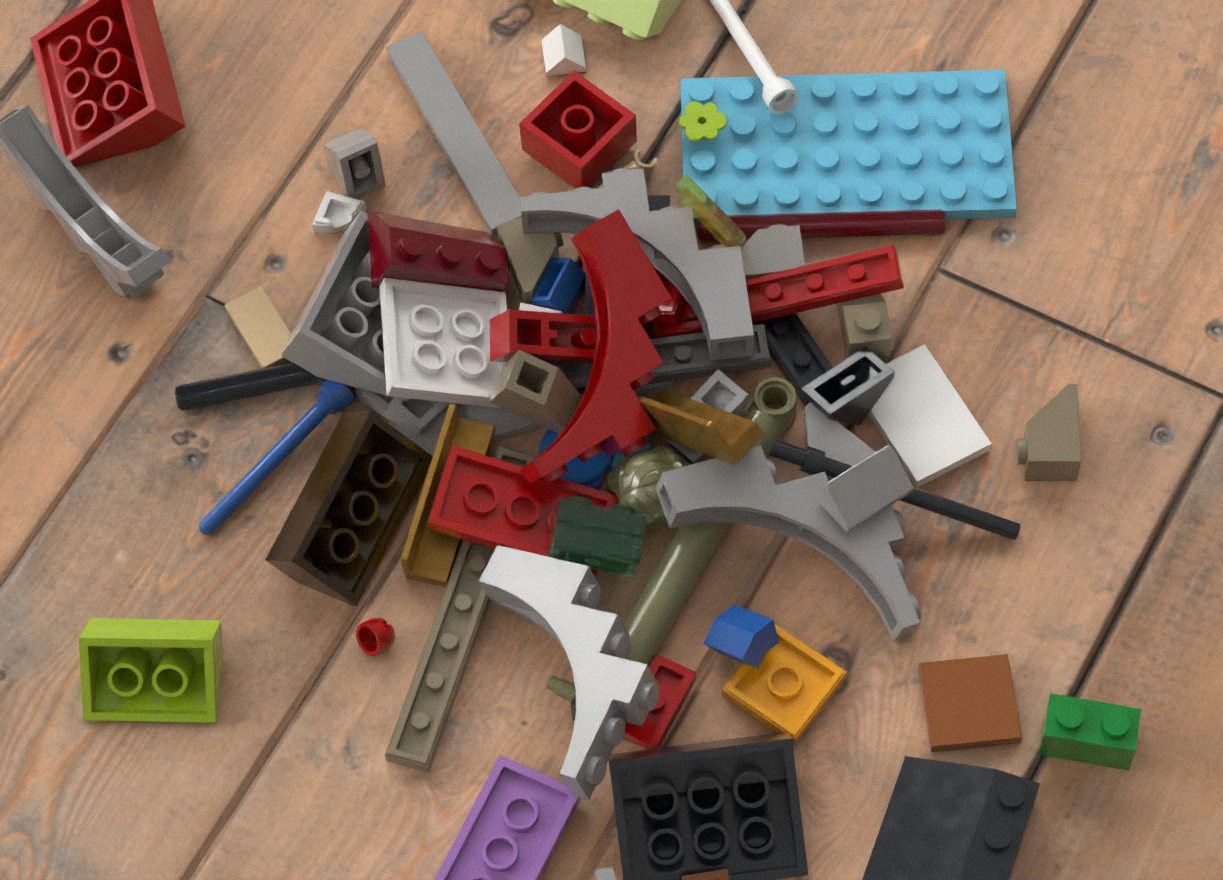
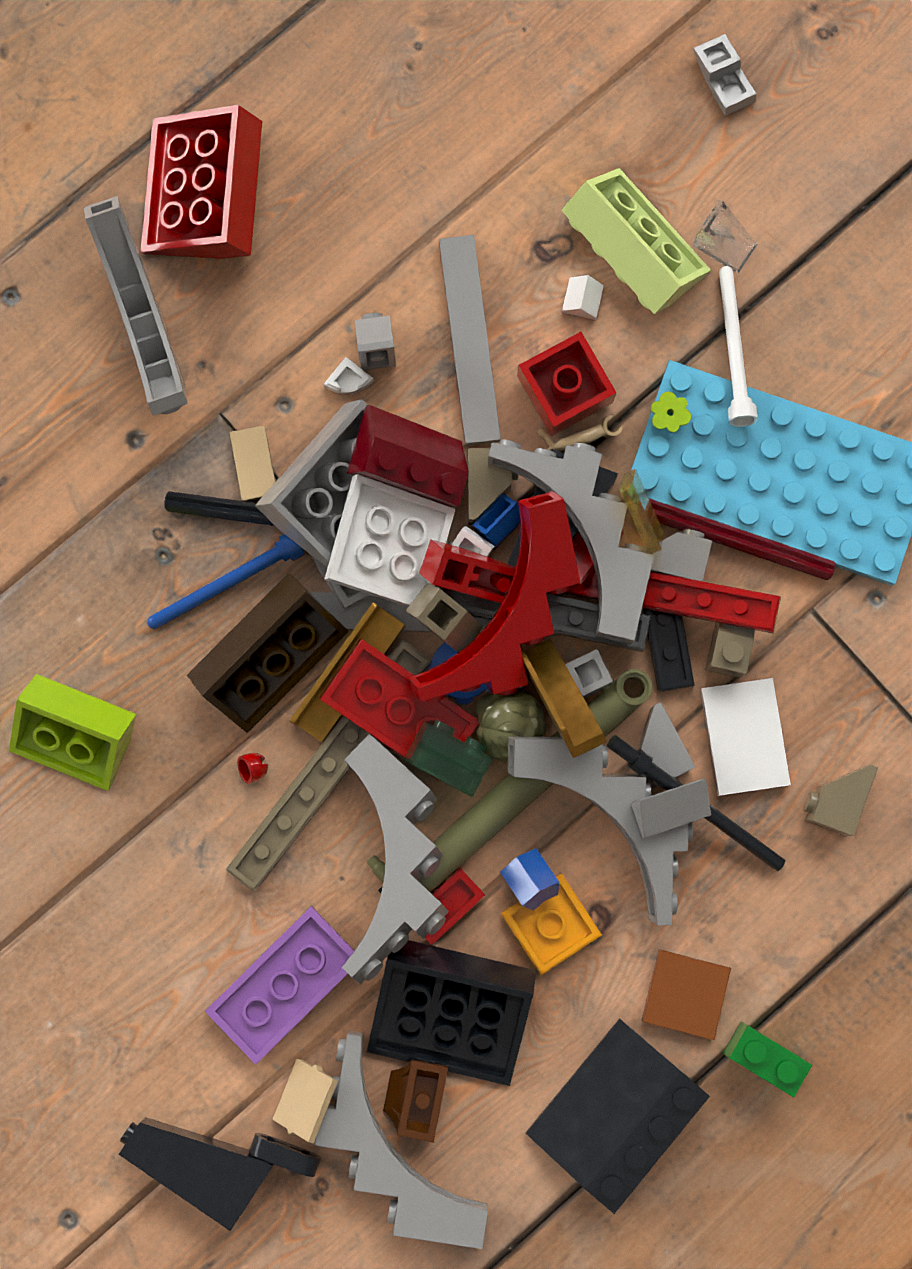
camera: 15 degrees right, 20 degrees up
(850, 387) = (696, 700): black slope -> none

